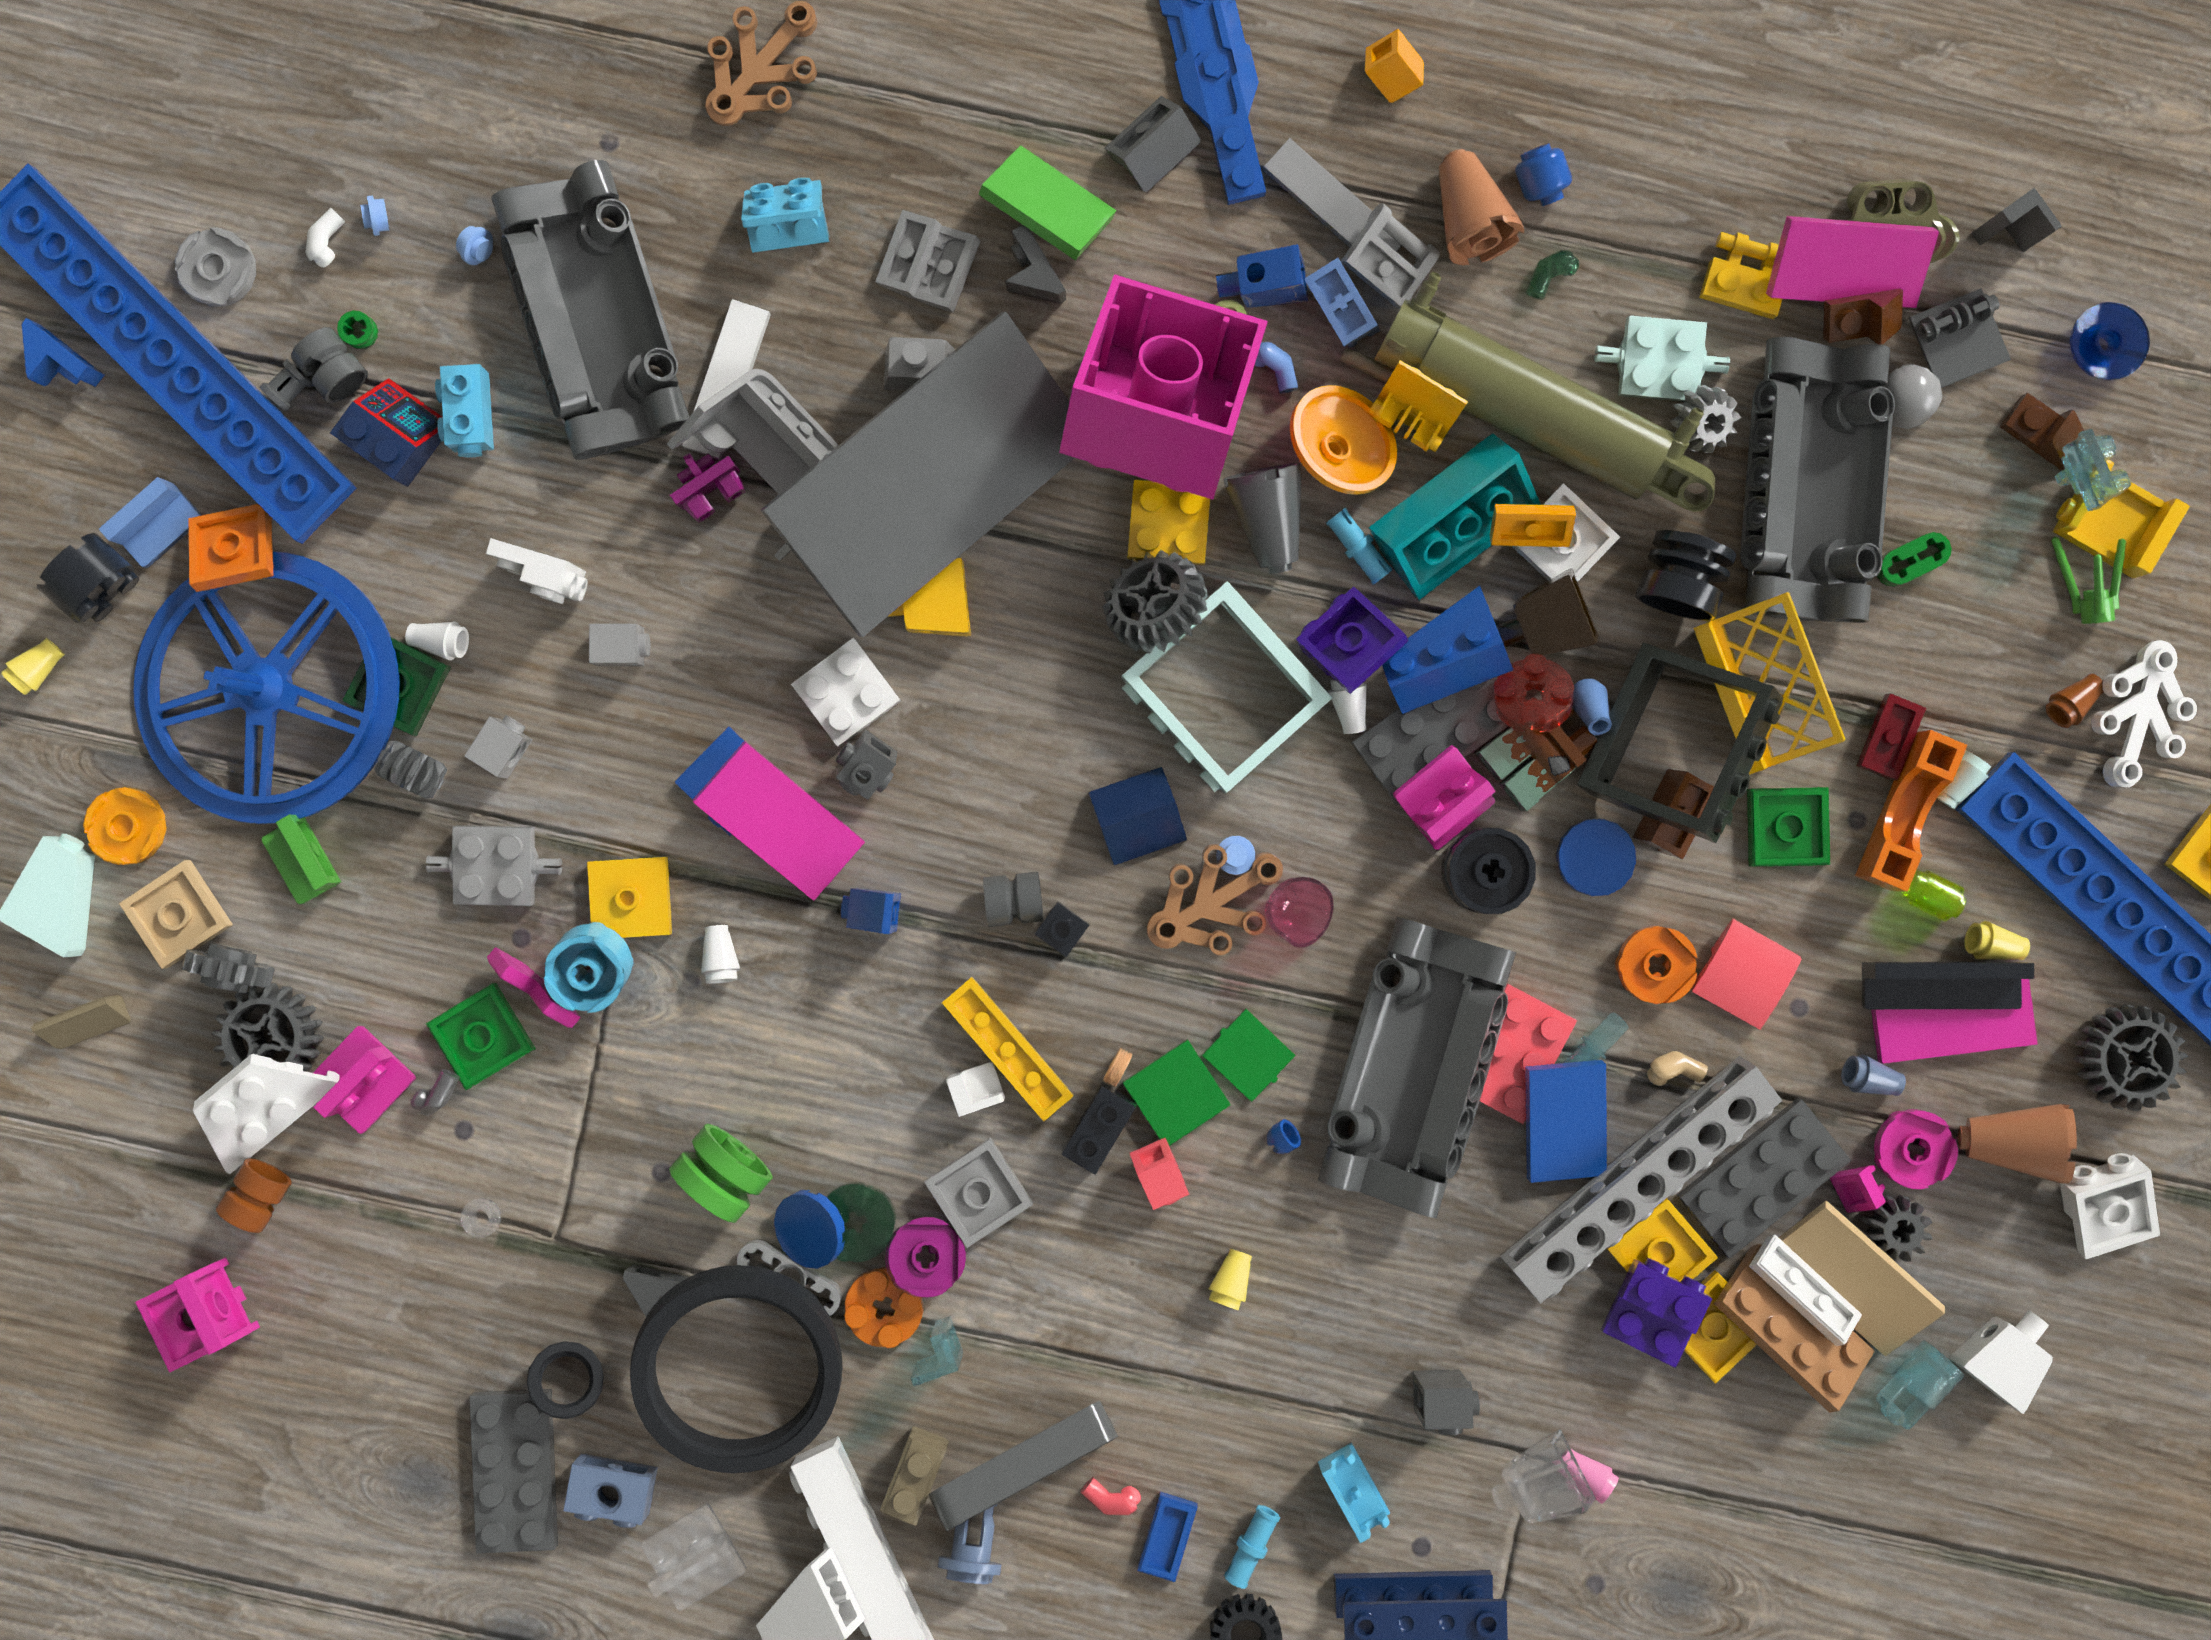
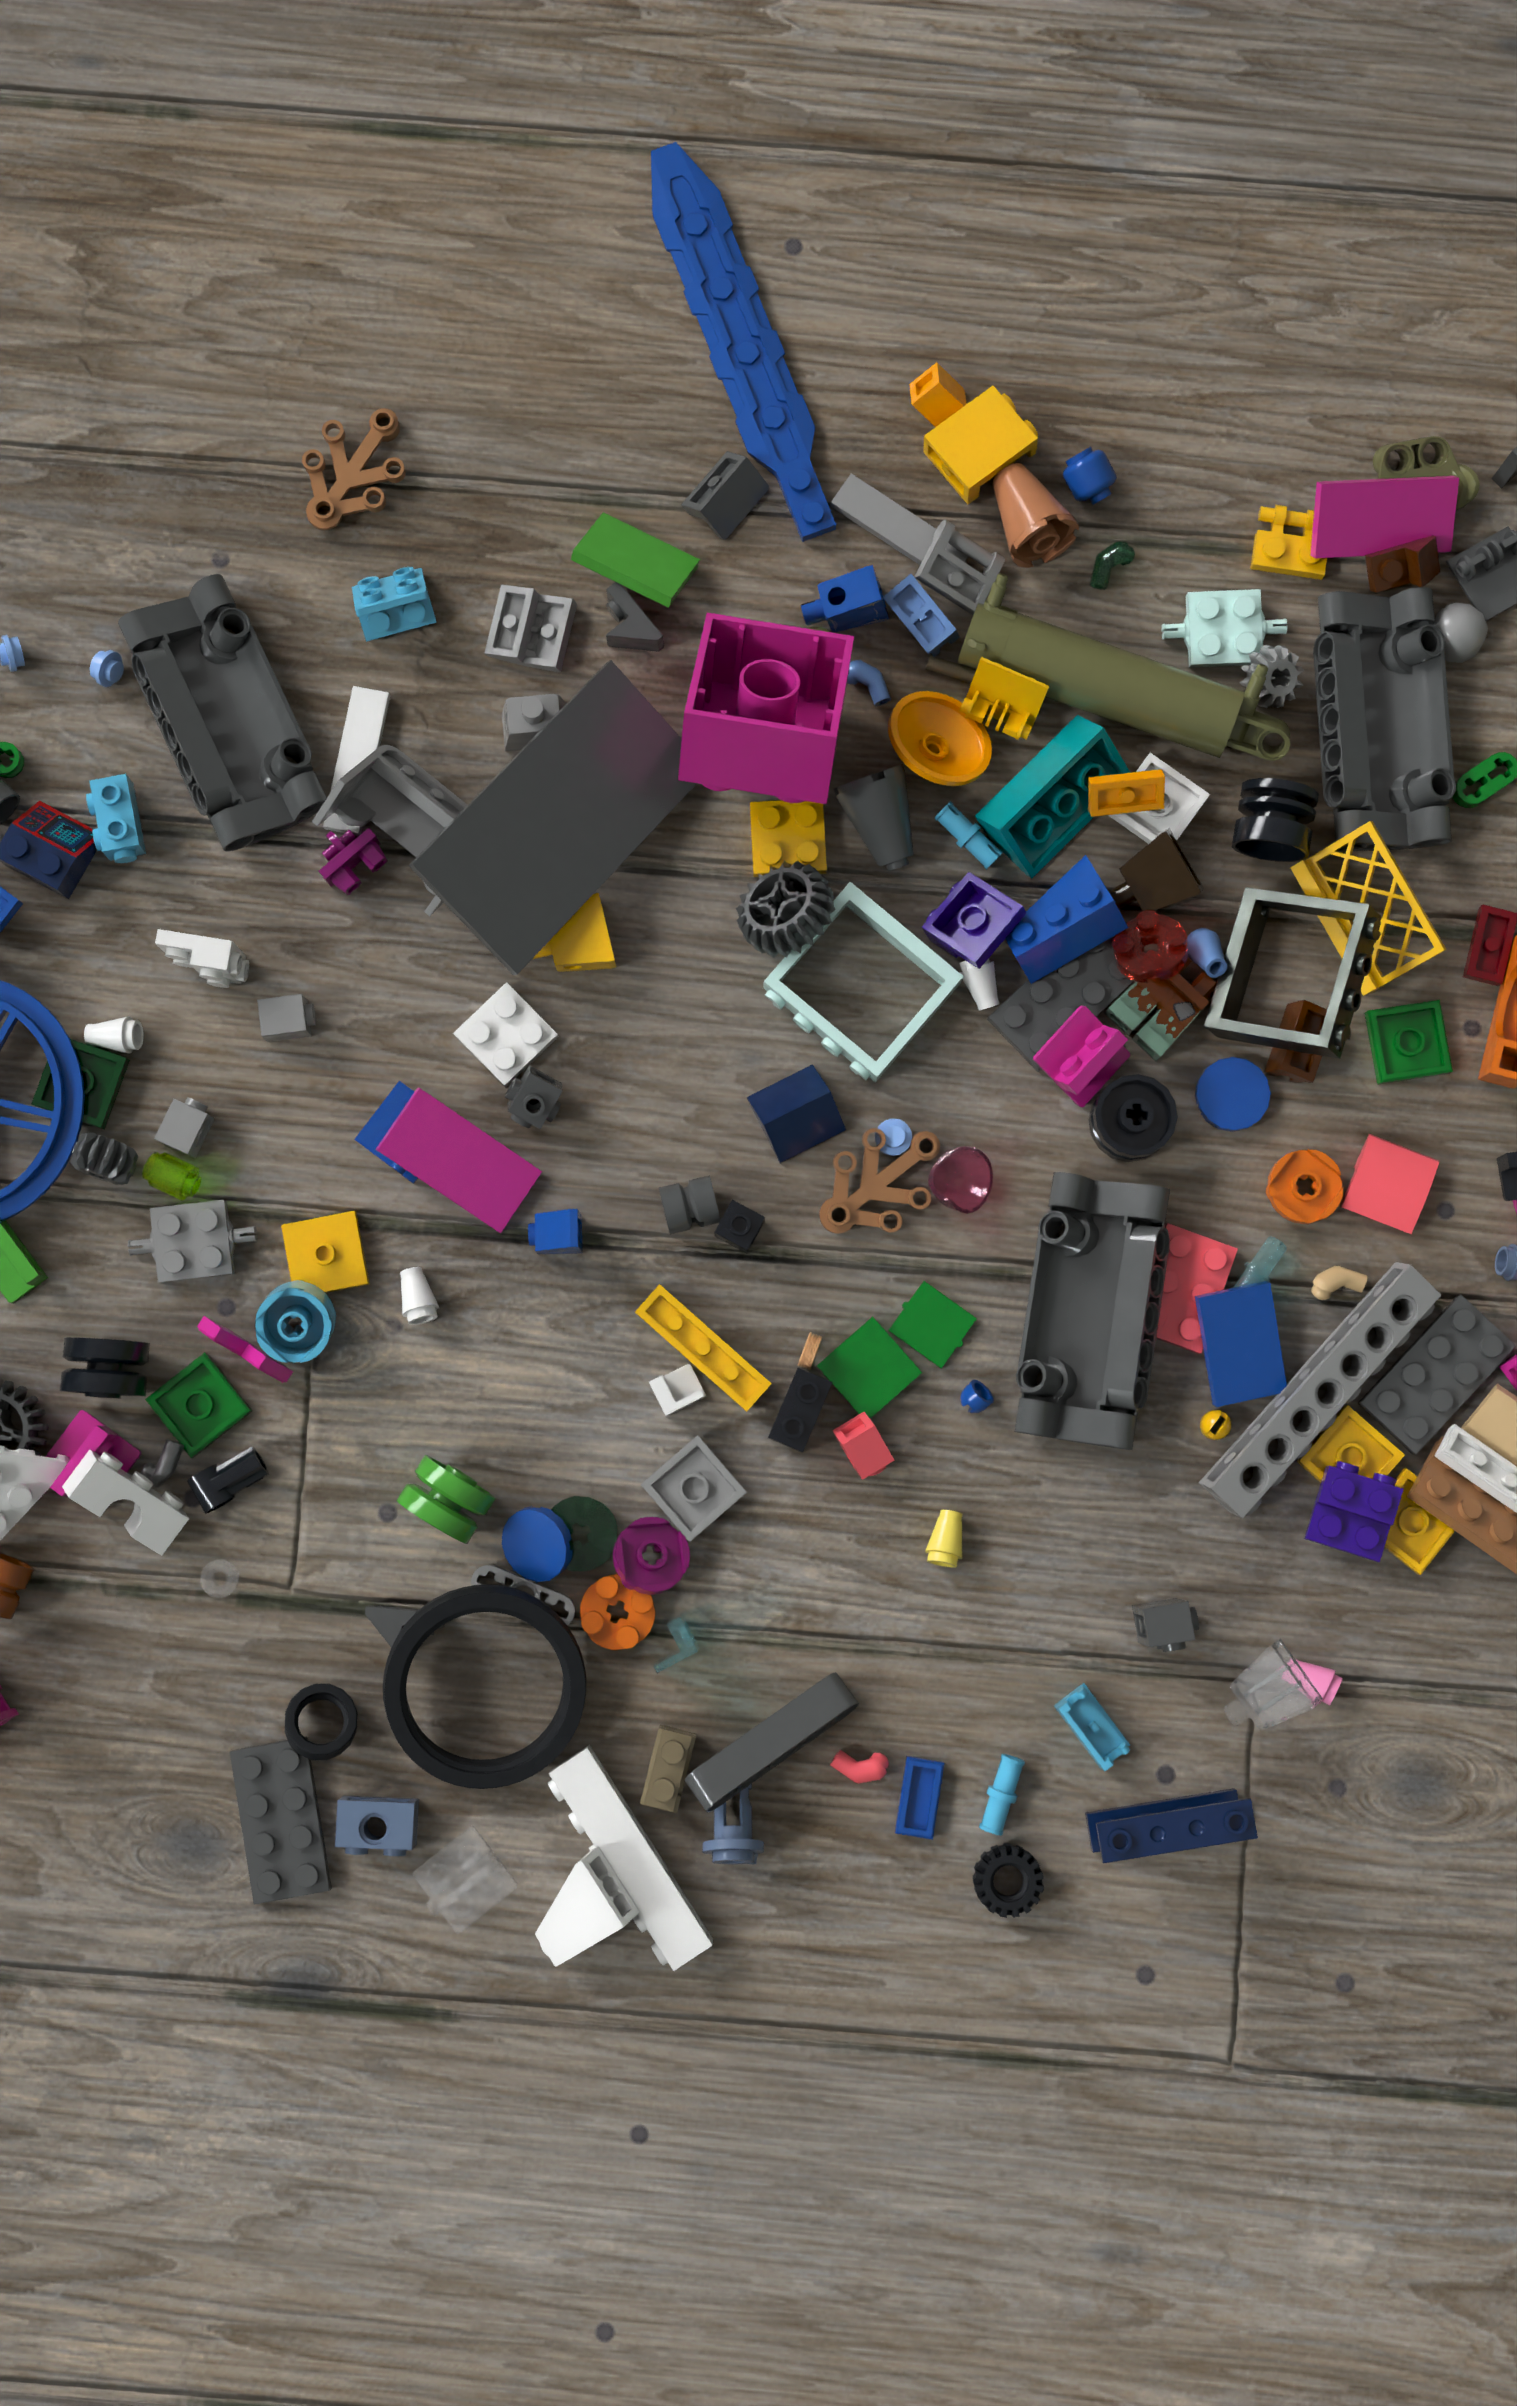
camera: 10 degrees left, 5 degrees down
(369, 1109) = (101, 1482): none -> white arch
(385, 988) = (105, 1367): none -> black wheel
(480, 795) = (172, 1175): none -> clear neon green brick
(494, 1120) = (220, 1483): none -> black piece
(1431, 122) = (979, 442): none -> yellow panel
(1521, 1193) = (1208, 1421): none -> yellow hinge

